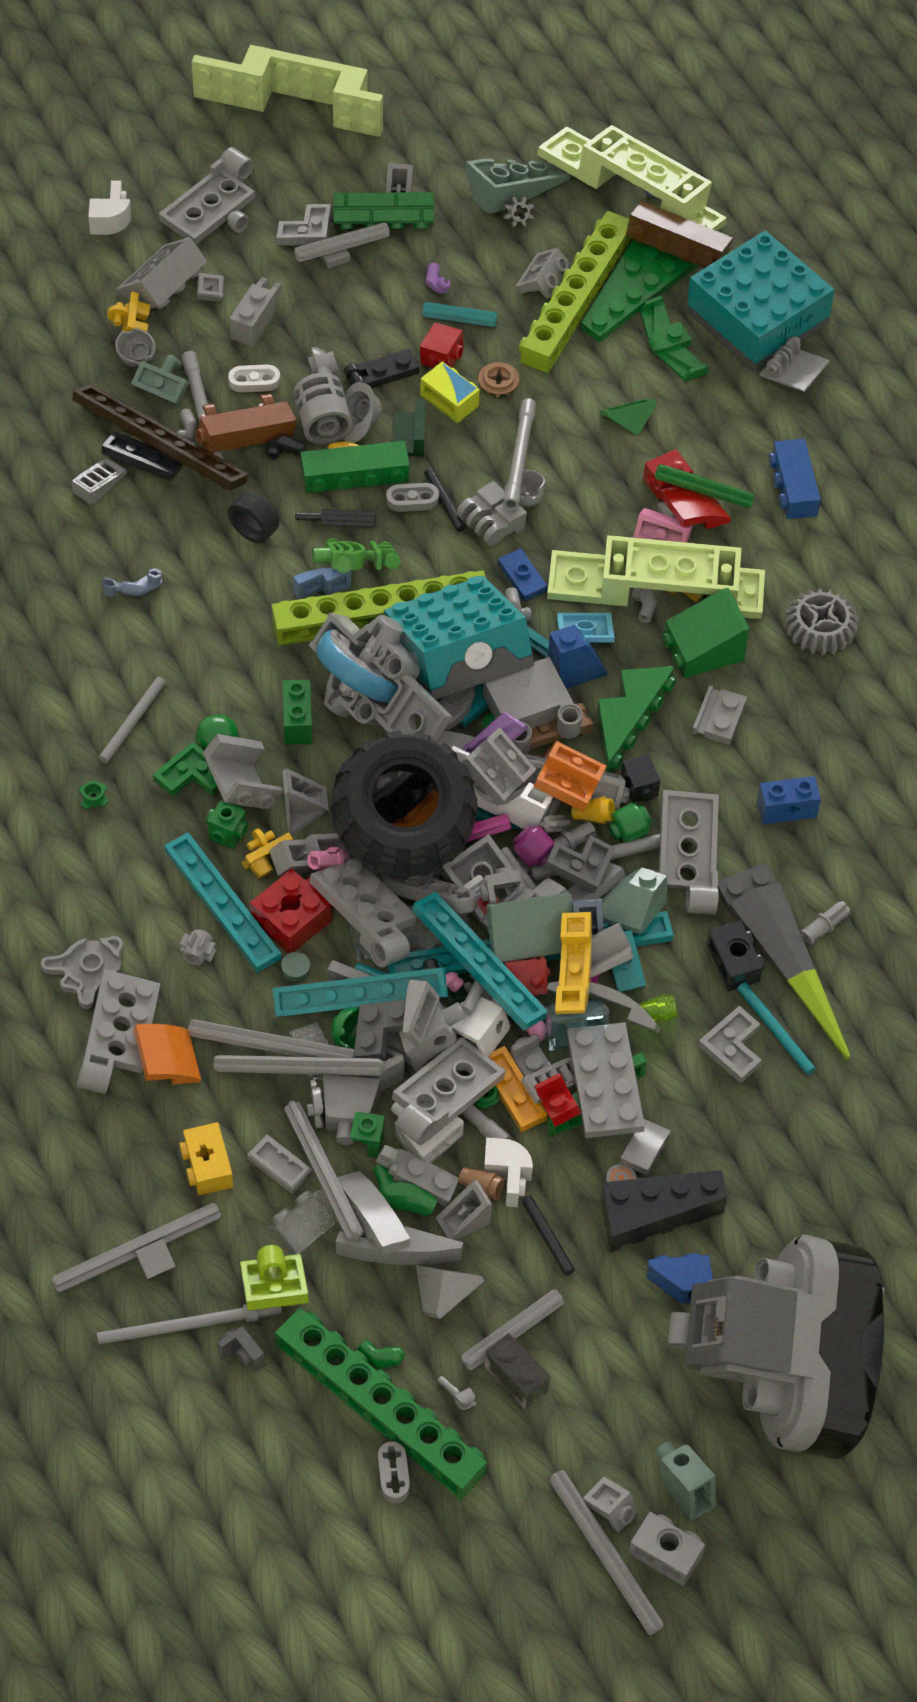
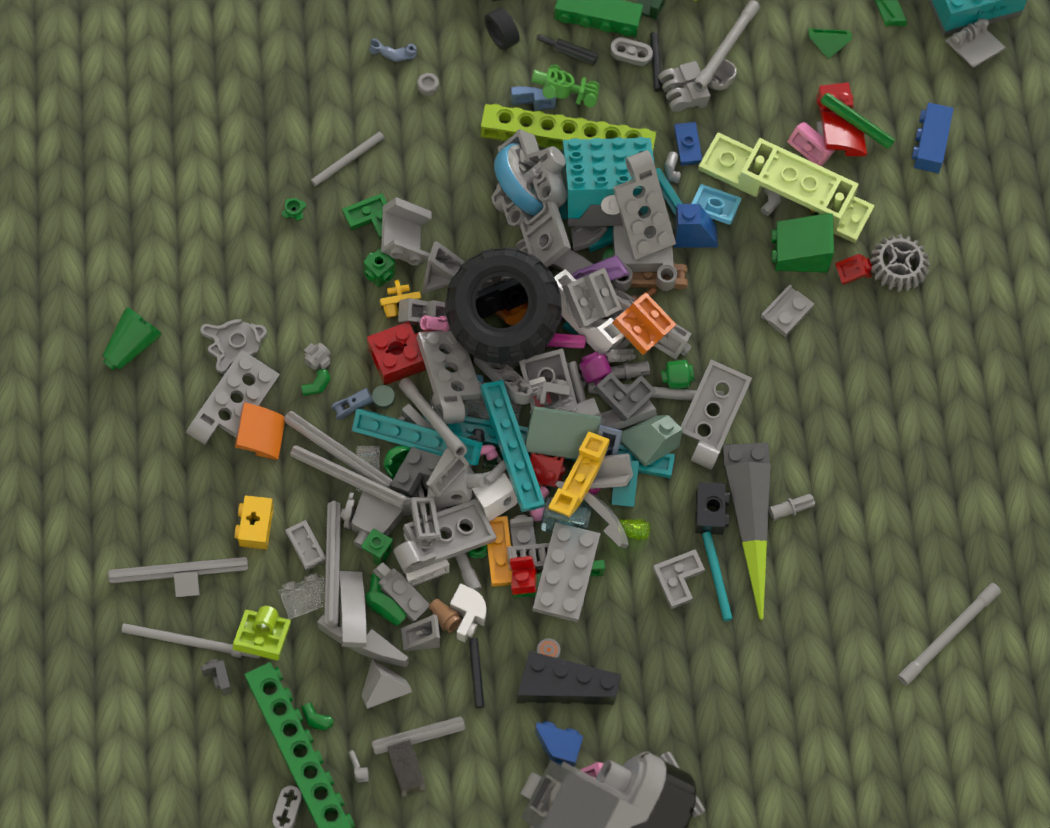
camera: 20 degrees right, 10 degrees up
(190, 607) = (428, 84): none -> light grey tile
(213, 980) = (319, 384): none -> green arm
(214, 725) = (405, 189): green hair -> none
(222, 902) = (351, 327): teal plate -> none
(266, 981) = (355, 402): none -> sand blue bar
(297, 712) = (468, 196): green brick -> none
(411, 1078) = (426, 535): none -> light grey tile
(413, 973) = (446, 434): none -> light grey piece
(505, 602) = (643, 174): none -> light grey hinge
(597, 810) = (658, 356): yellow cone -> none
(625, 716) = (713, 287): green slope -> none
(641, 778) = (702, 341): black brick -> none
(645, 1147) = (576, 633): light grey slope -> none
(773, 644) = (854, 268): none -> red bracket
(788, 800) = (807, 399): blue brick -> none

